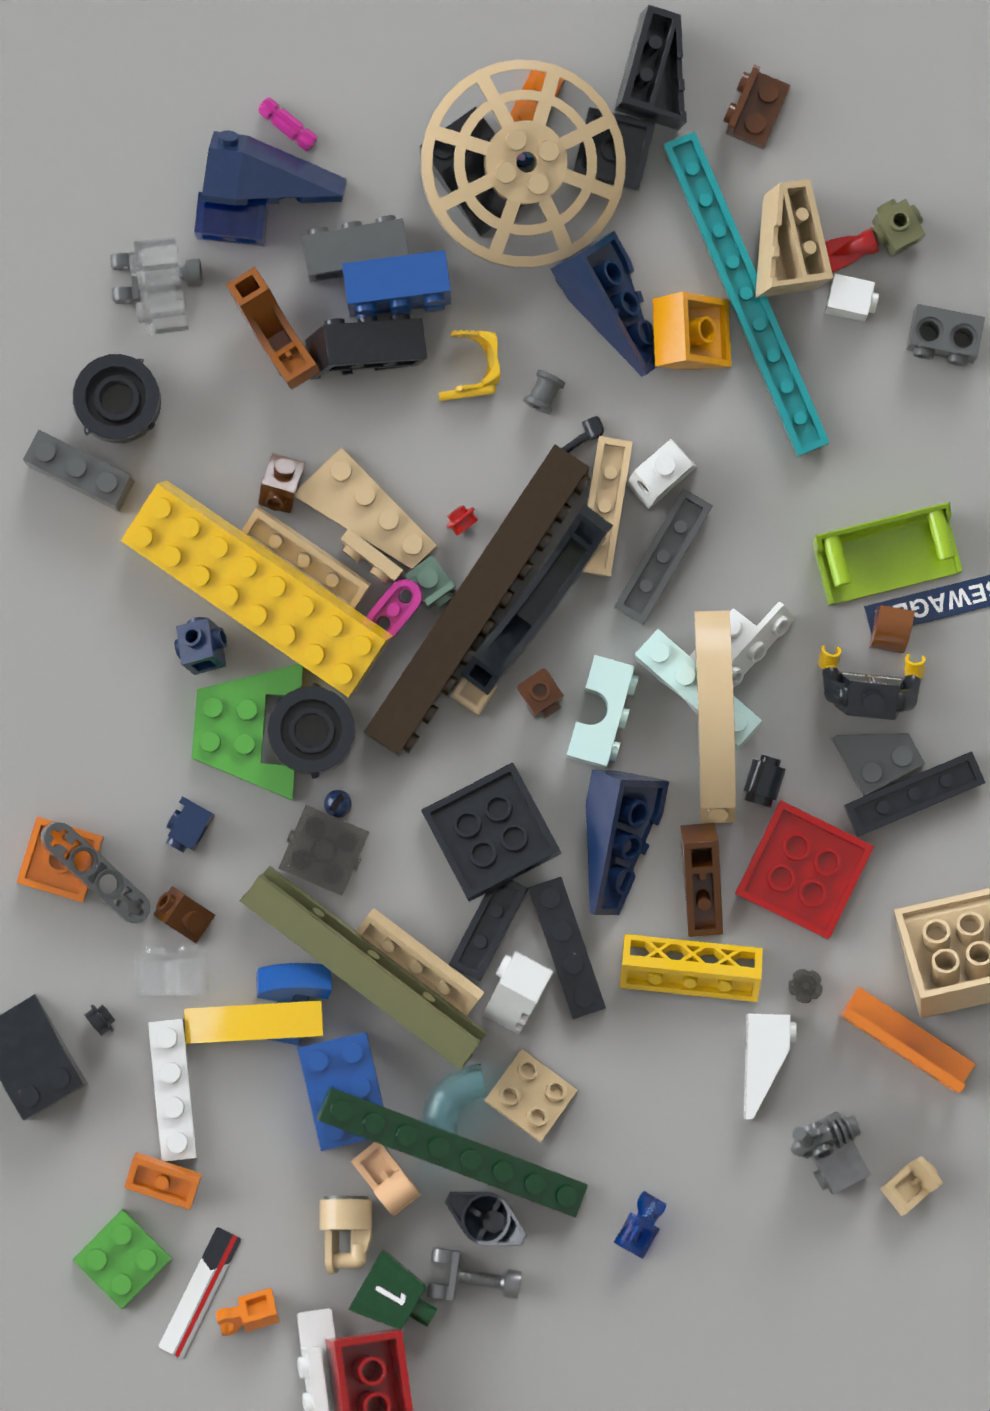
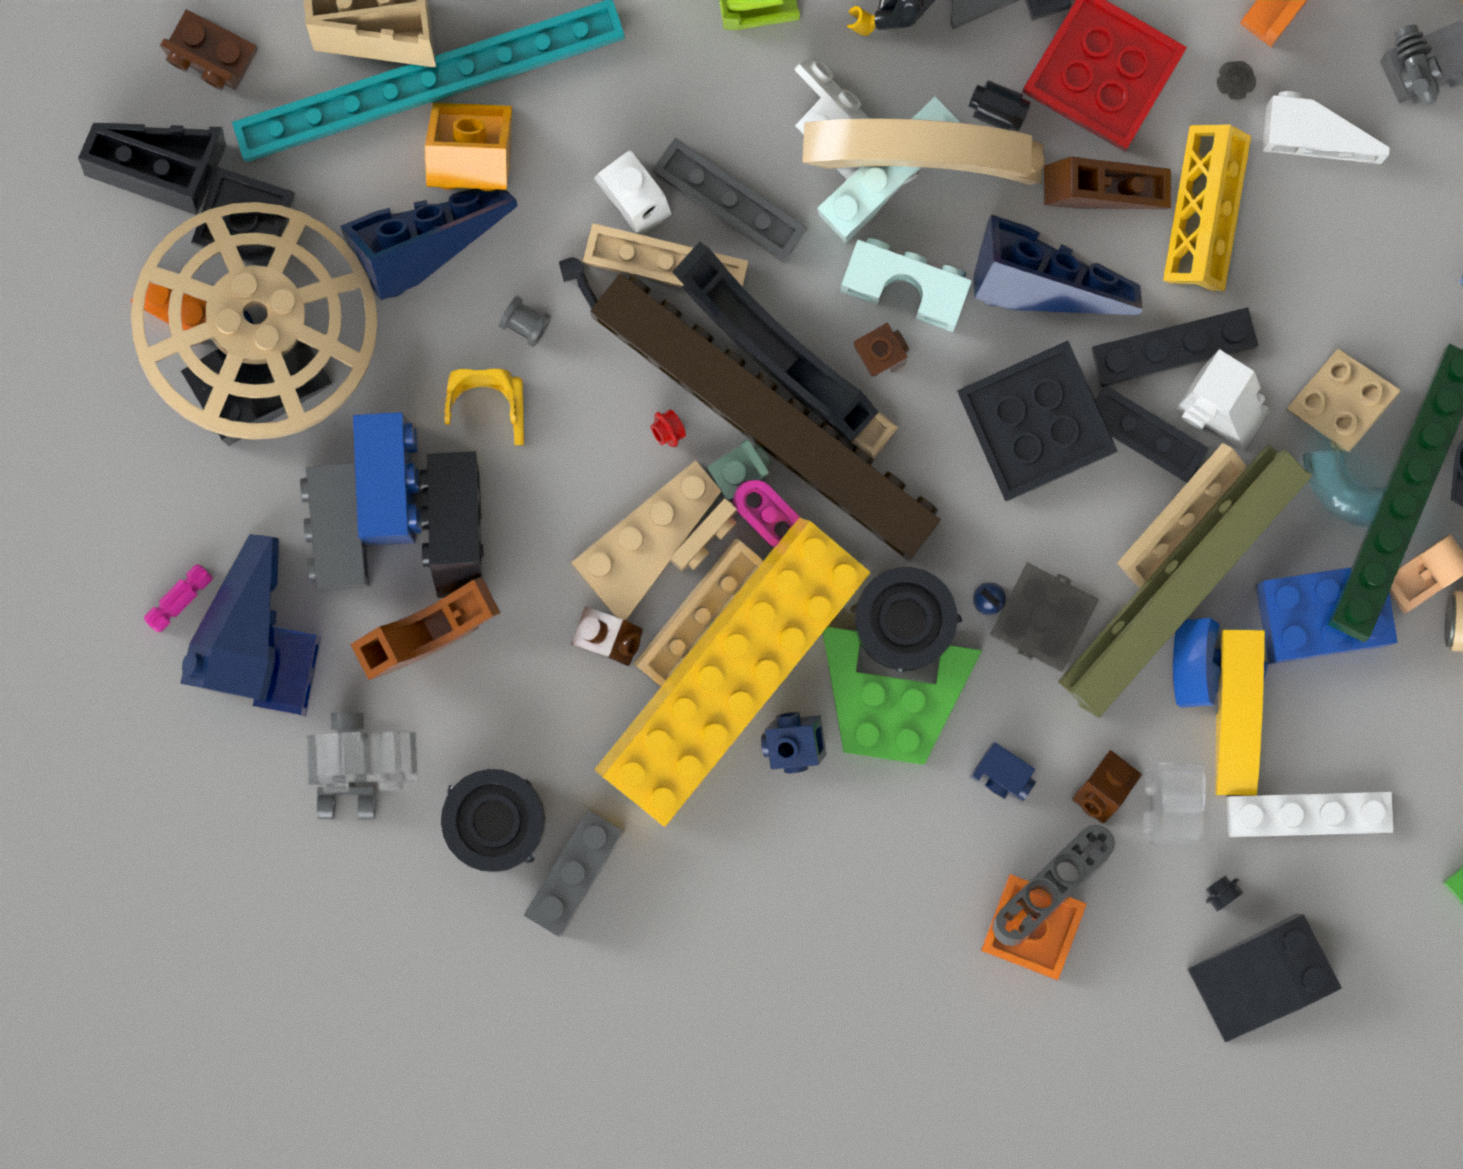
camera: 85 degrees left, 0 degrees up
(163, 1180) = (1416, 831): orange plate -> none

